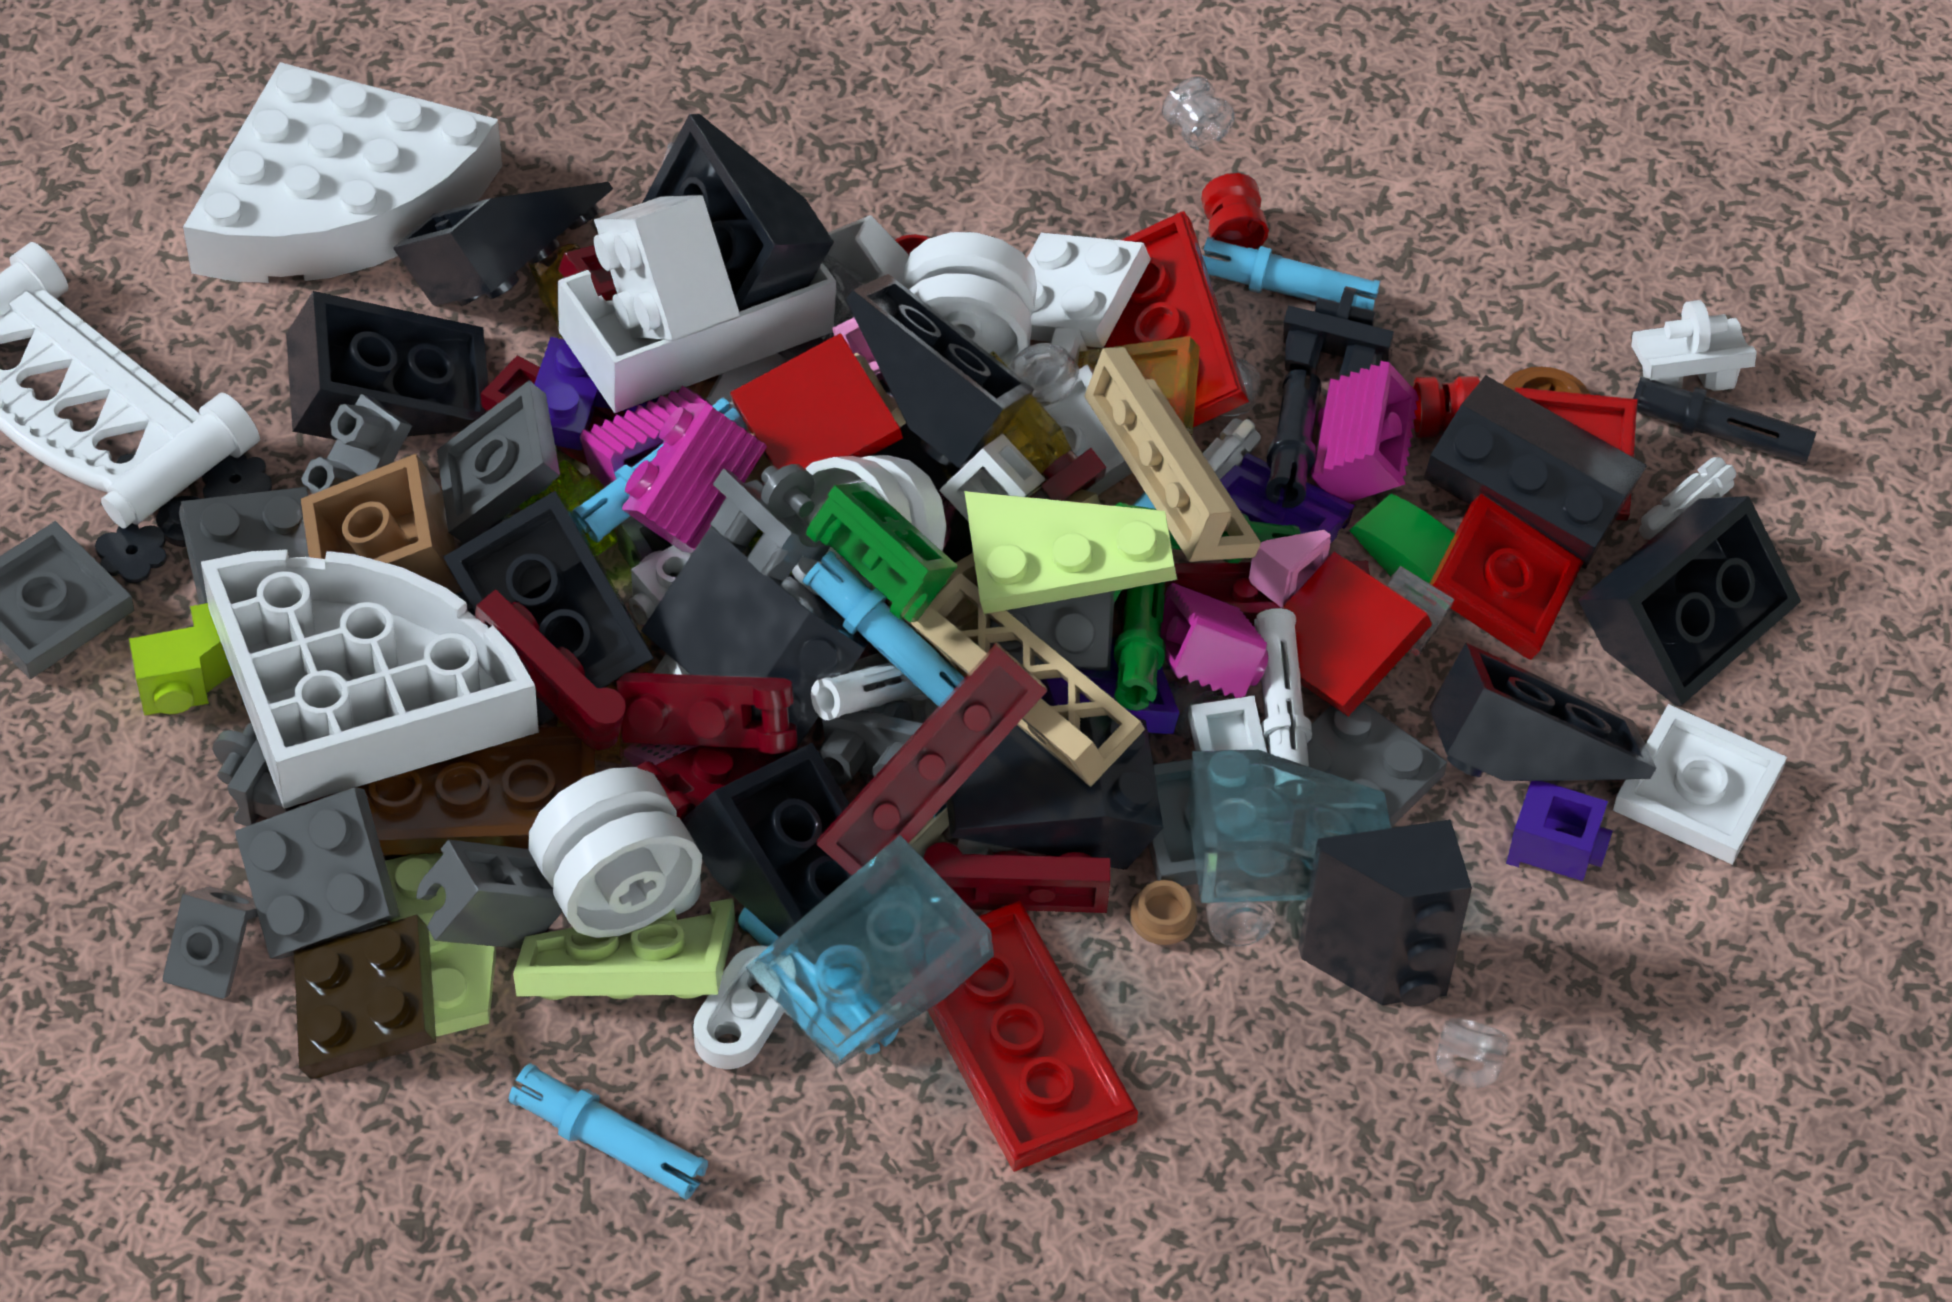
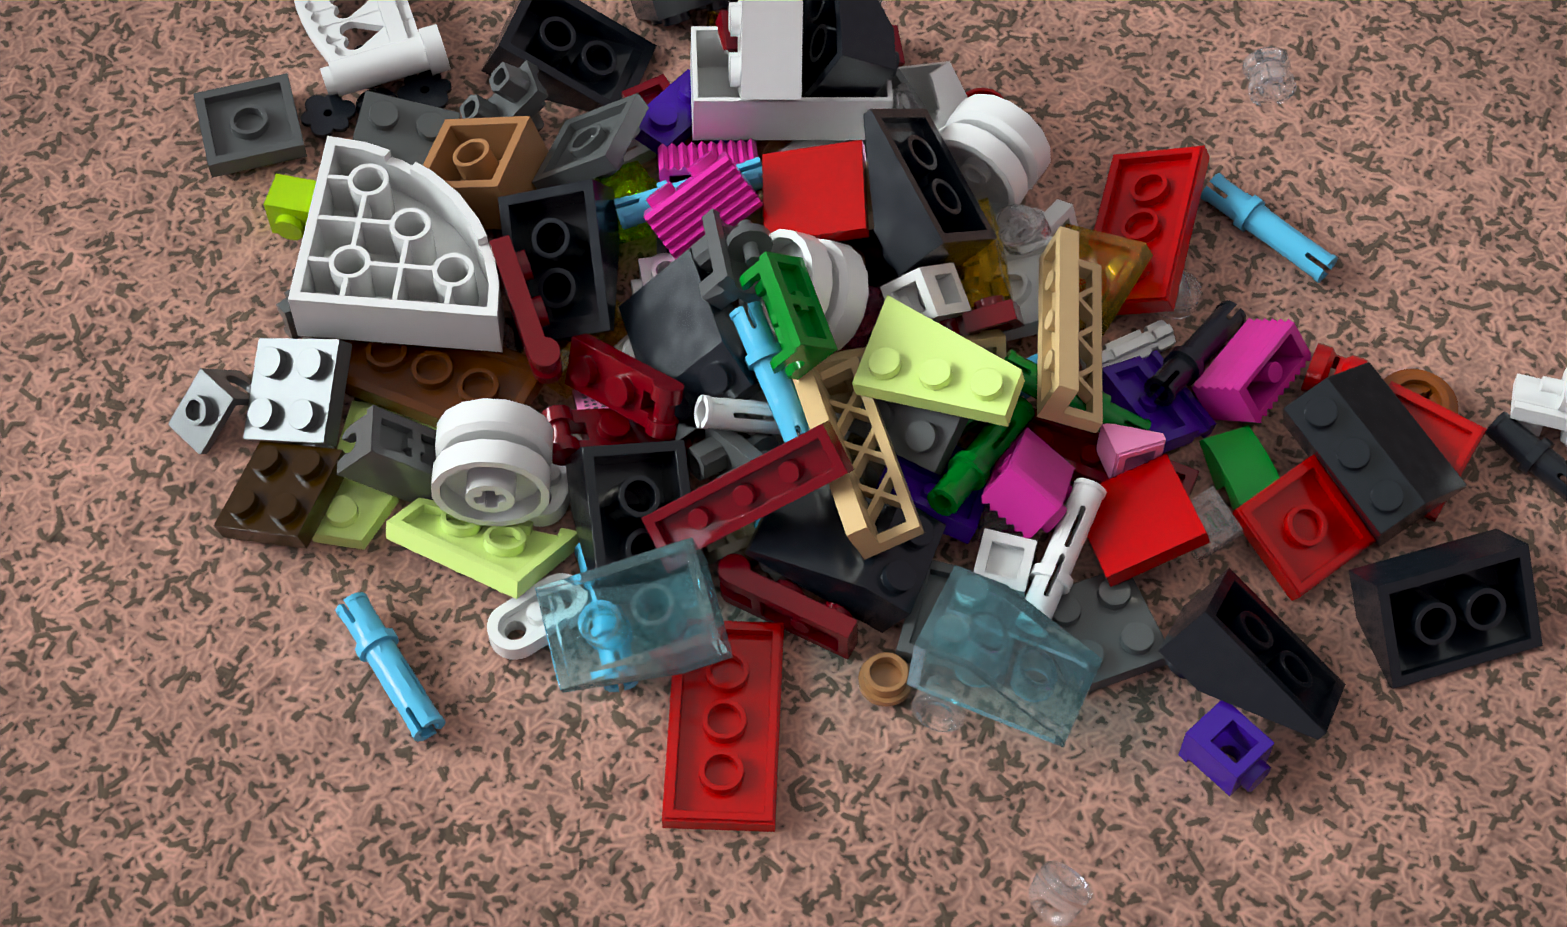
camera: 30 degrees right, 5 degrees up
(1083, 284) = (1095, 174): white plate -> none
(1234, 210) = (1253, 161): red wheel -> none
(1335, 330) = (1259, 278): black hips -> none
(1388, 911) = (1036, 755): black slope -> none
(1704, 784) = (1369, 760): white plate -> none
(1713, 481) = (1523, 518): white axle -> none

